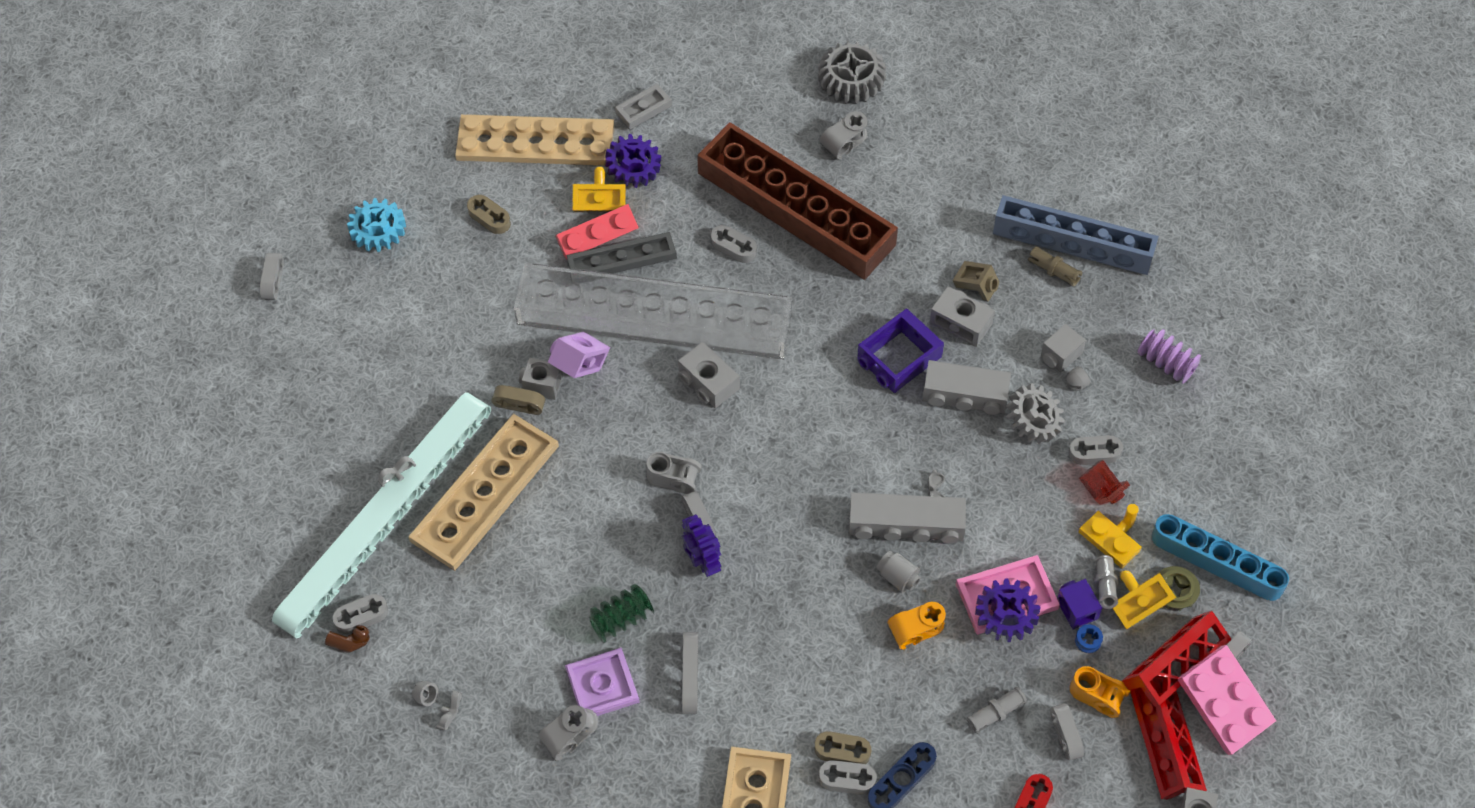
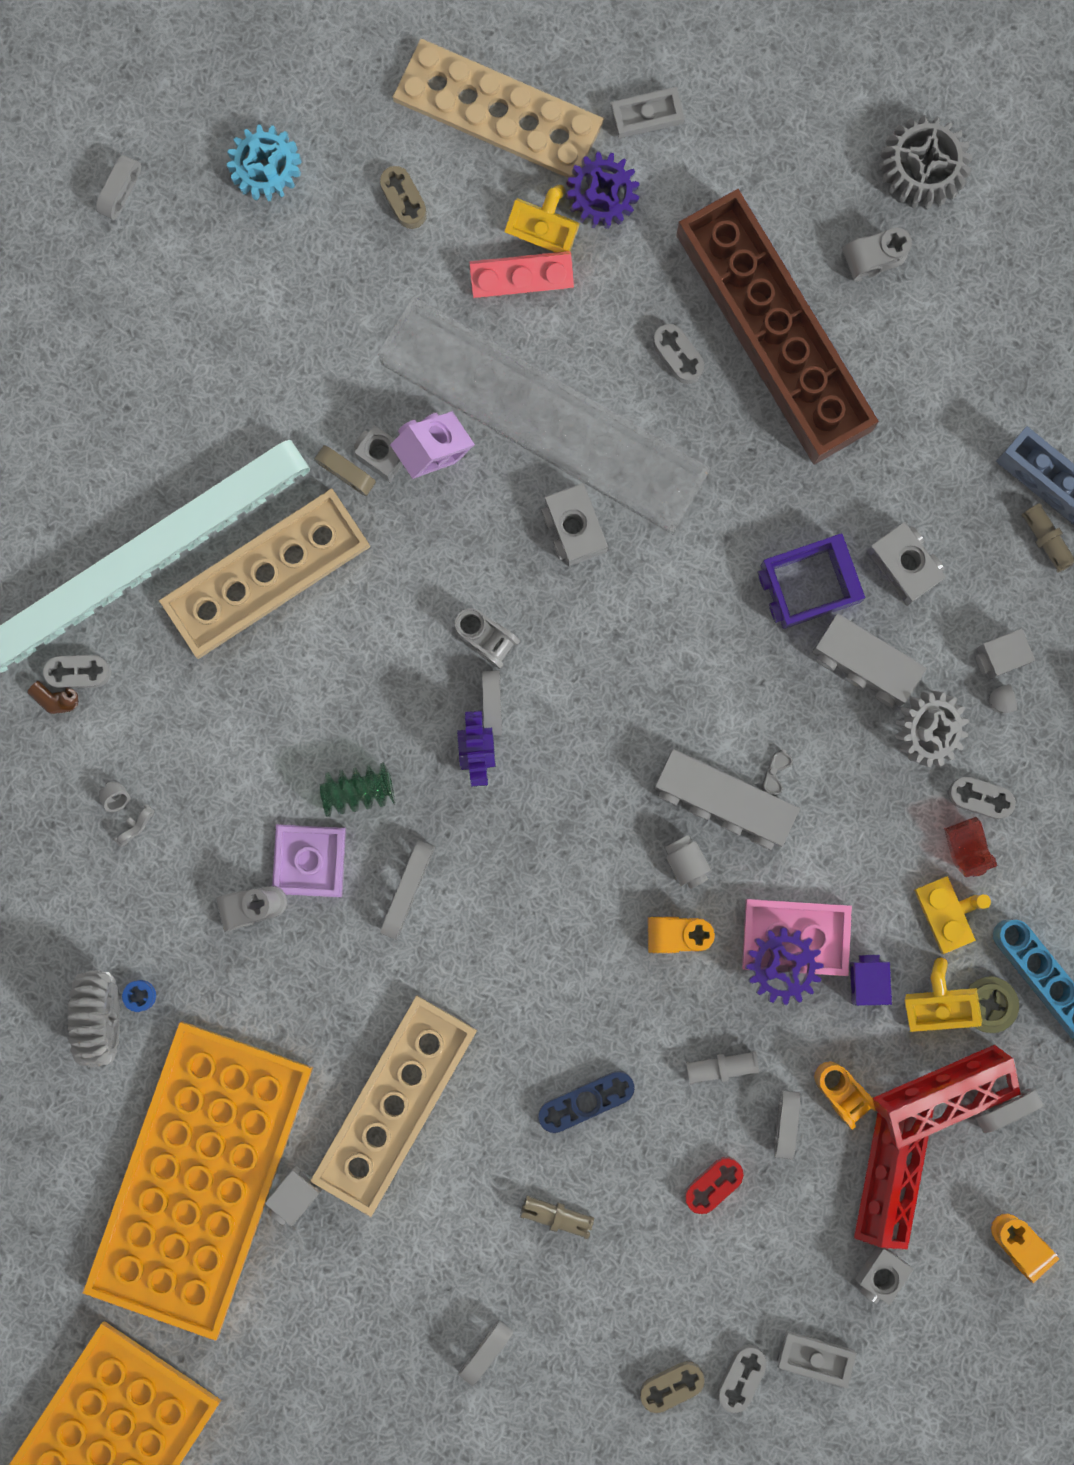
camera: 25 degrees right, 25 degrees up
(389, 473) = (168, 516): light grey piece -> none
(625, 255) = (538, 321): dark grey plate -> none
(842, 741) = (531, 1050): dark tan beam -> none
(847, 770) = (524, 1085): light grey beam -> none
(978, 278) = (947, 519): dark tan bracket -> none
(1082, 645) = (866, 1035): blue bush -> none
(1106, 582) = (913, 970): light grey pin -> none
(1226, 700) = (978, 1164): bright pink plate -> none
(1295, 750) = (1026, 1249): none -> light orange piece

